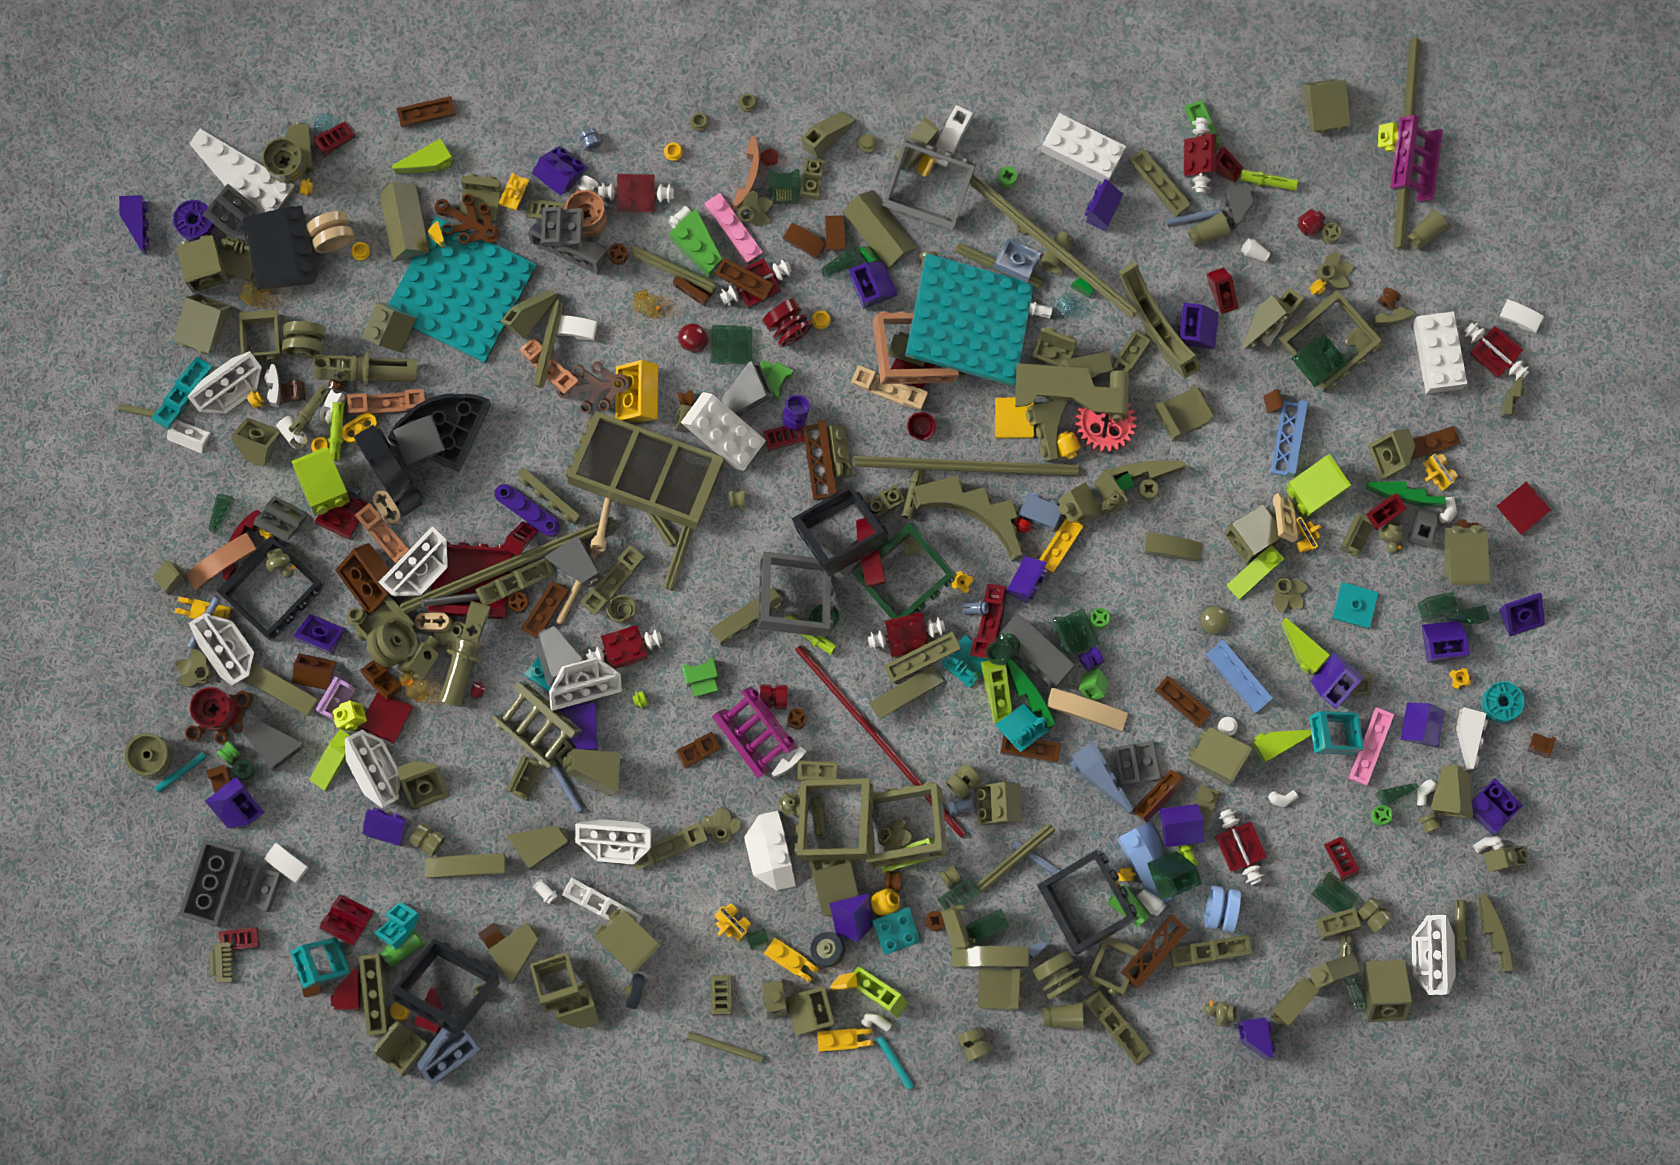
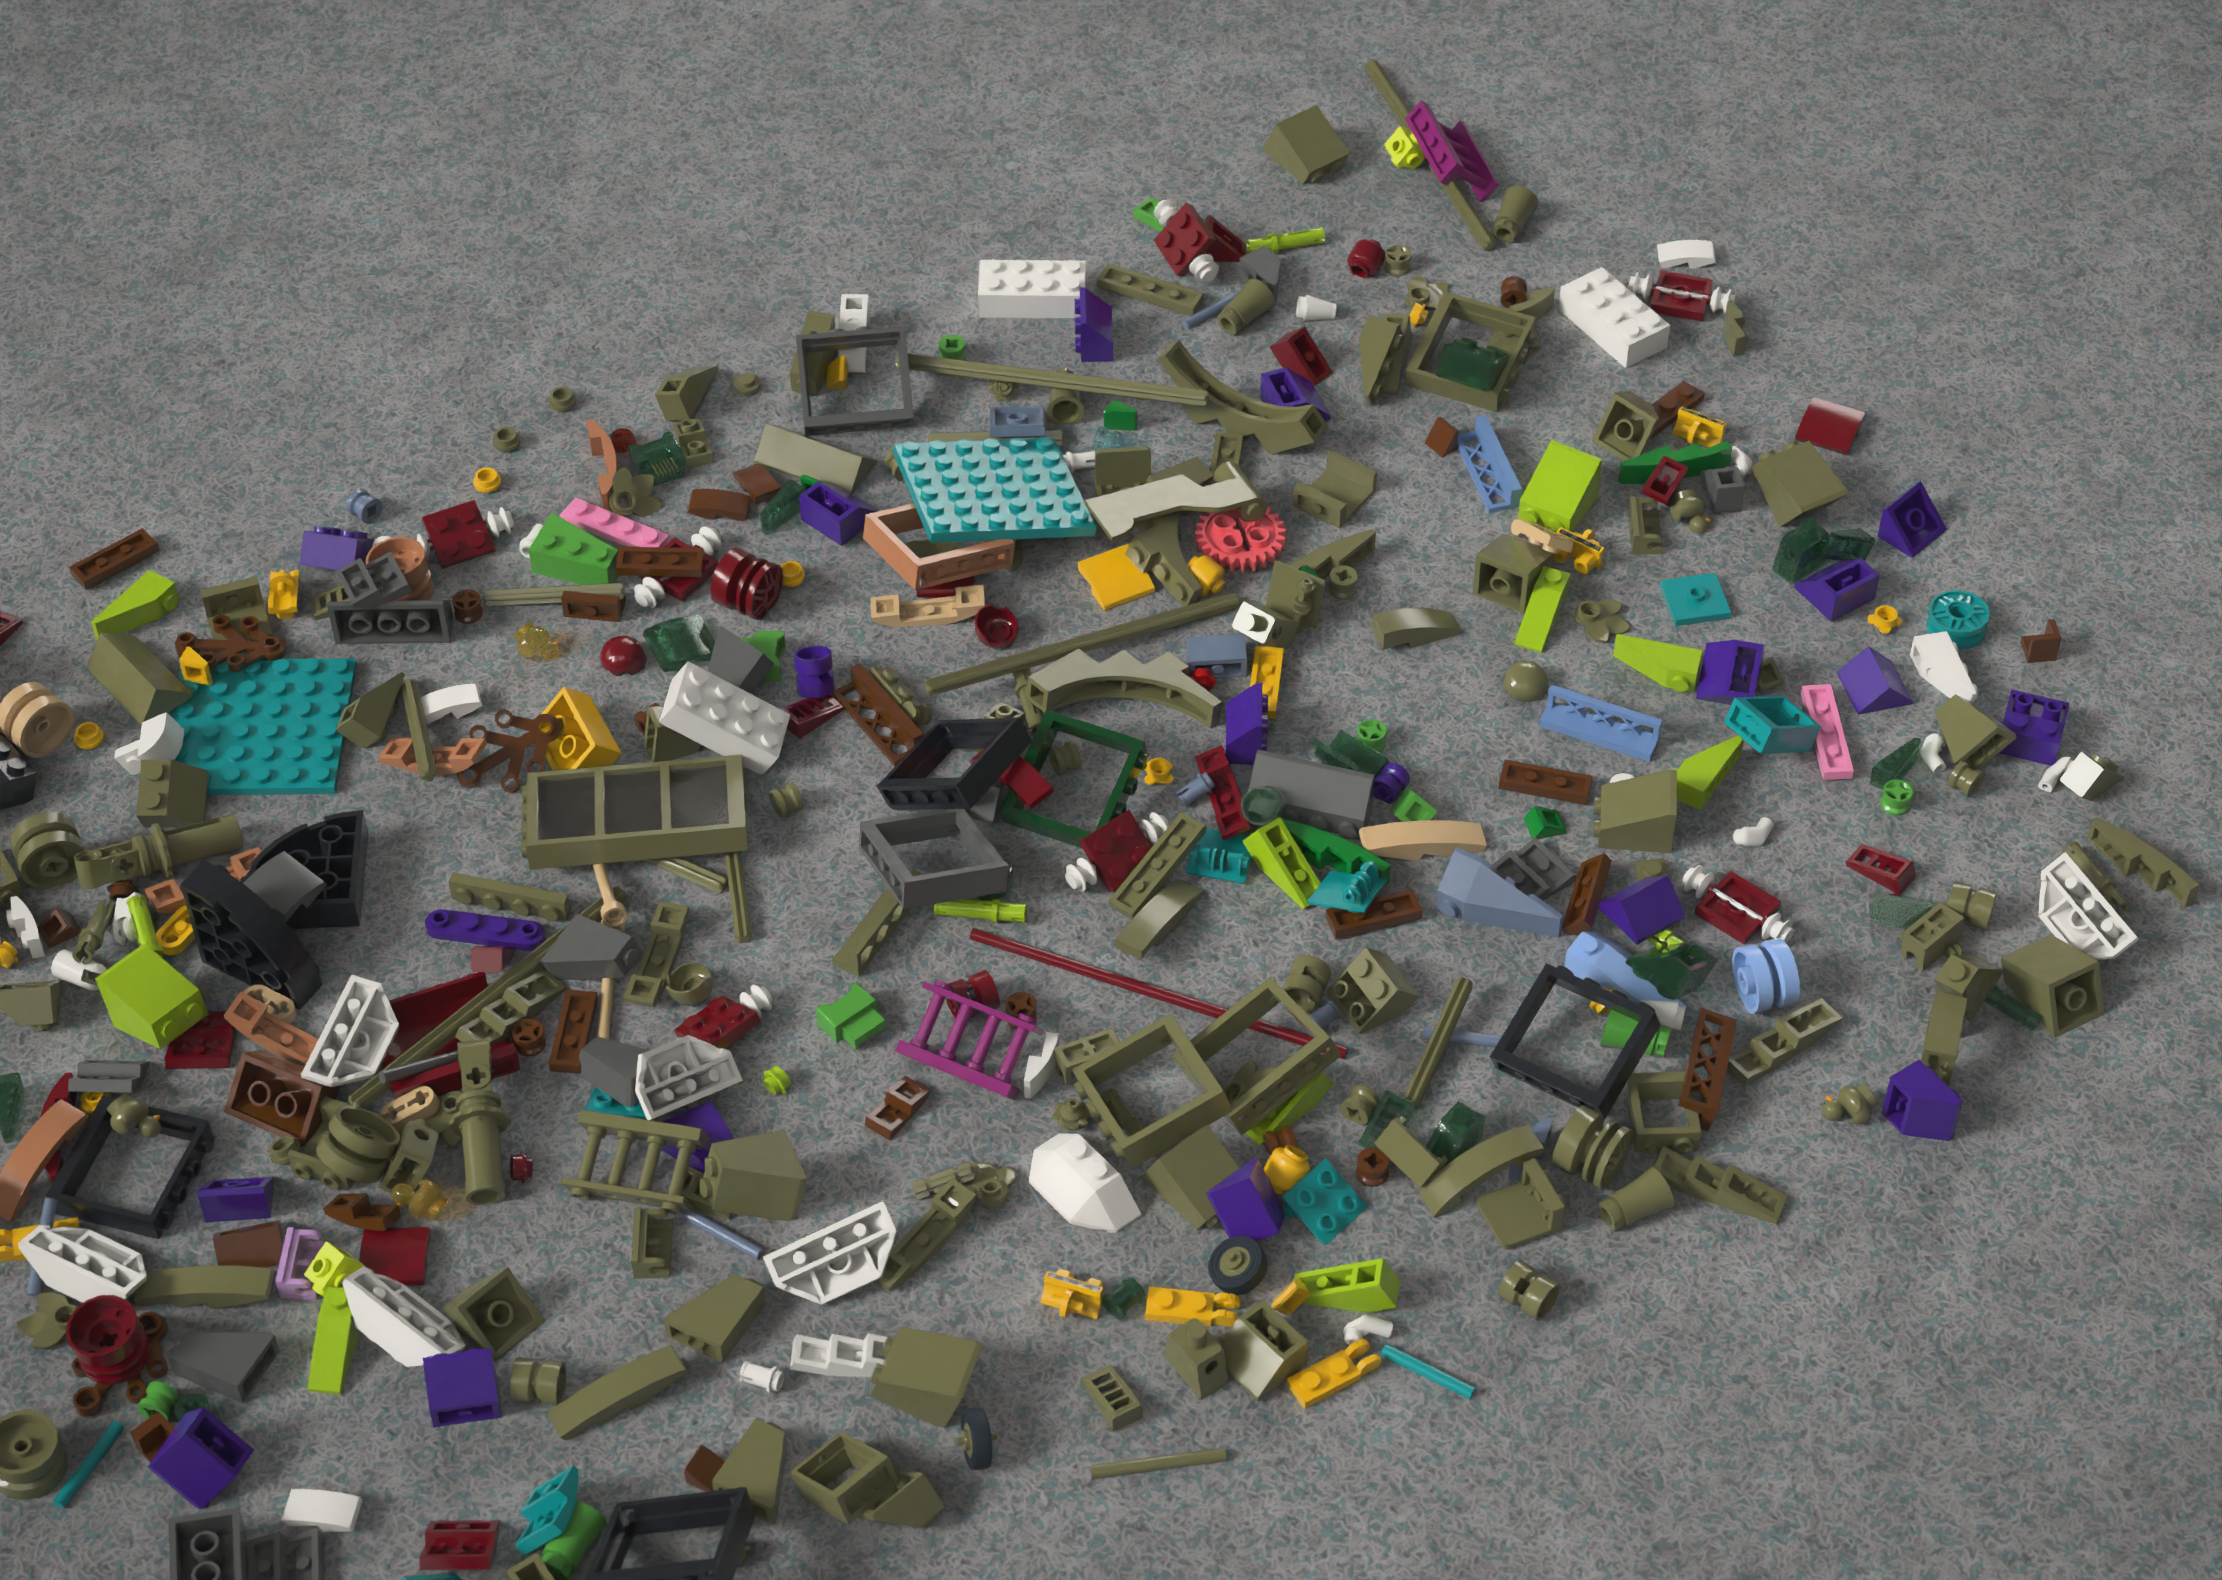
camera: 20 degrees left, 30 degrees down
(394, 285) = (159, 740): none -> white brick
(698, 814) = (936, 1181): none -> olive axle
(1166, 730) = (1544, 823): none -> green slope

